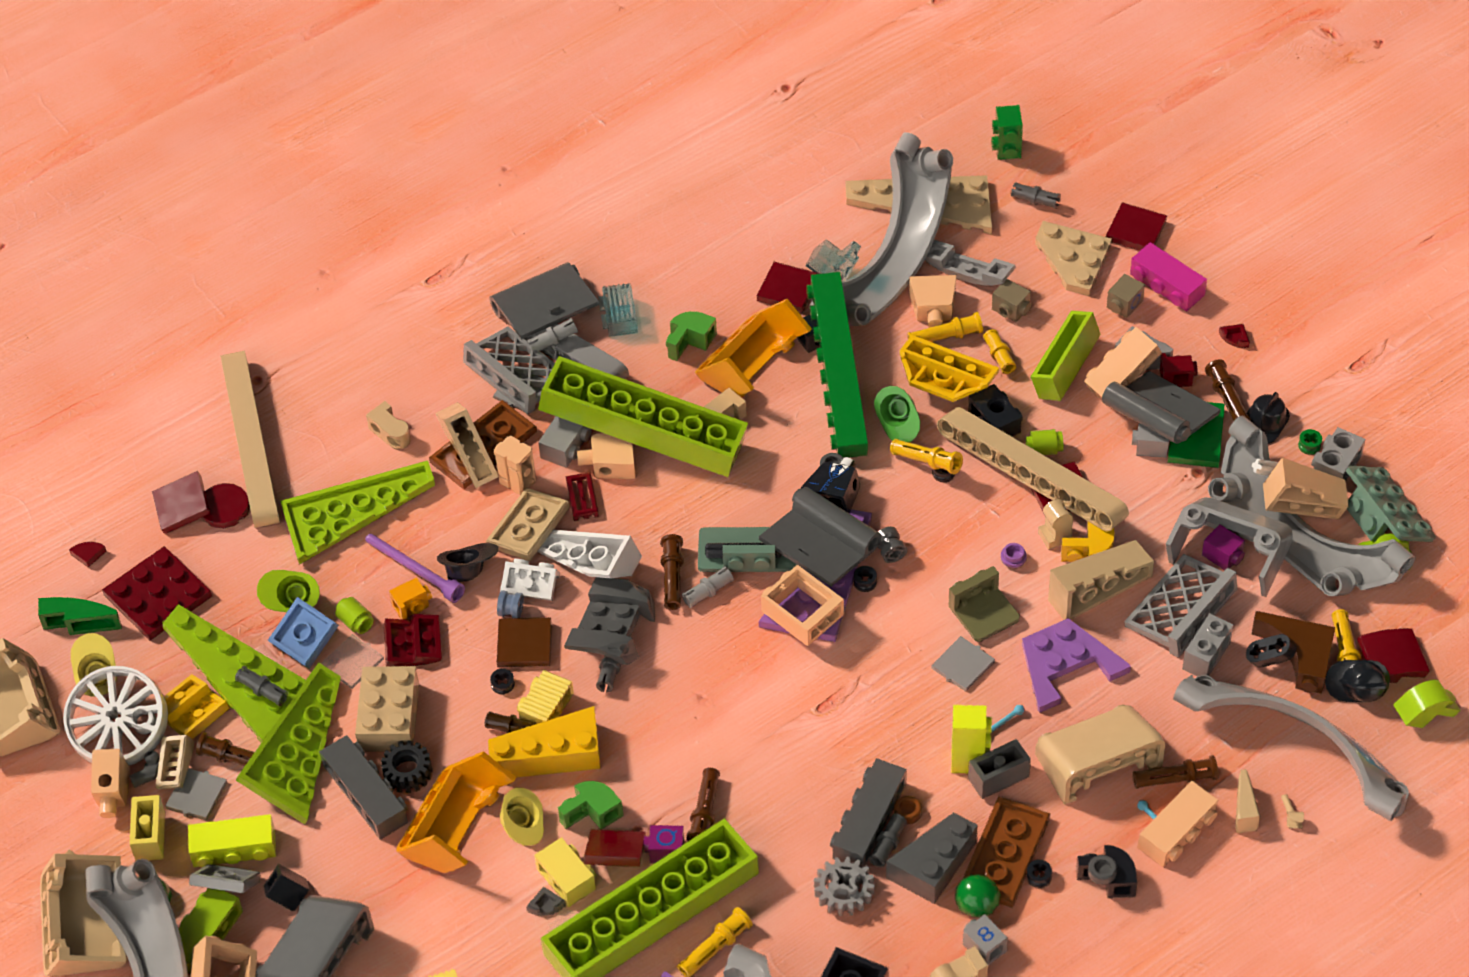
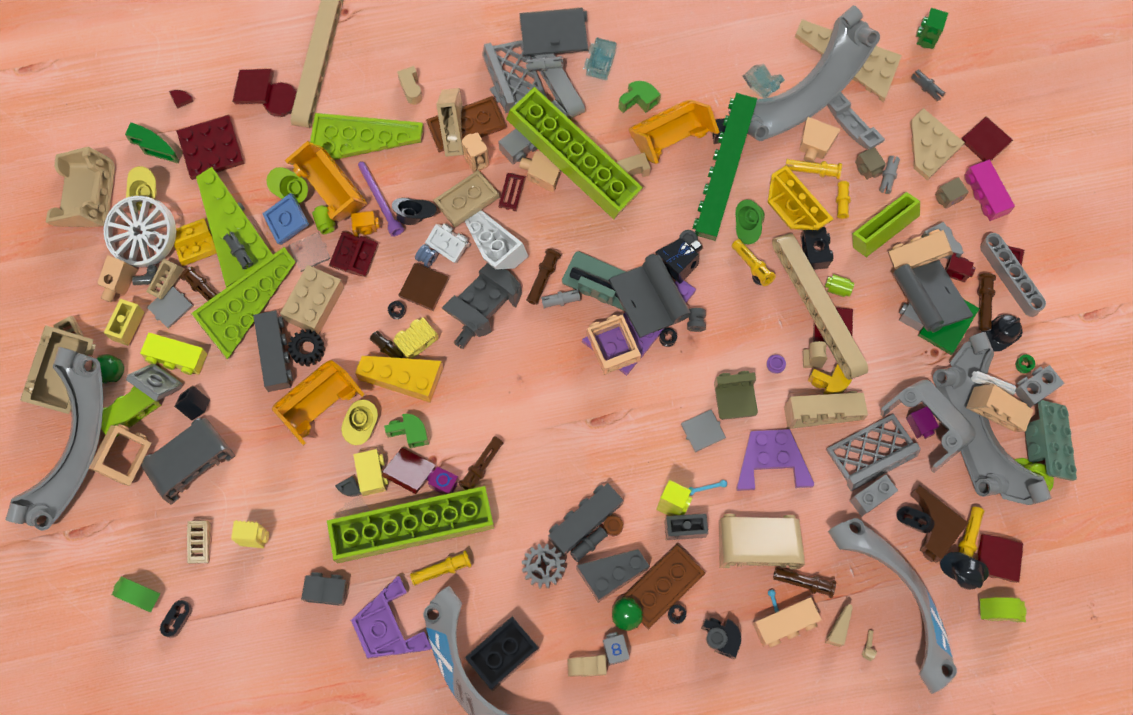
camera: 20 degrees right, 20 degrees up
(340, 564) = (328, 180): none -> light orange windscreen
(785, 283) = (722, 86): dark red tile -> none
(1041, 304) = (889, 174): none -> light grey pin
(1244, 353) = (1012, 283): none -> light grey beam

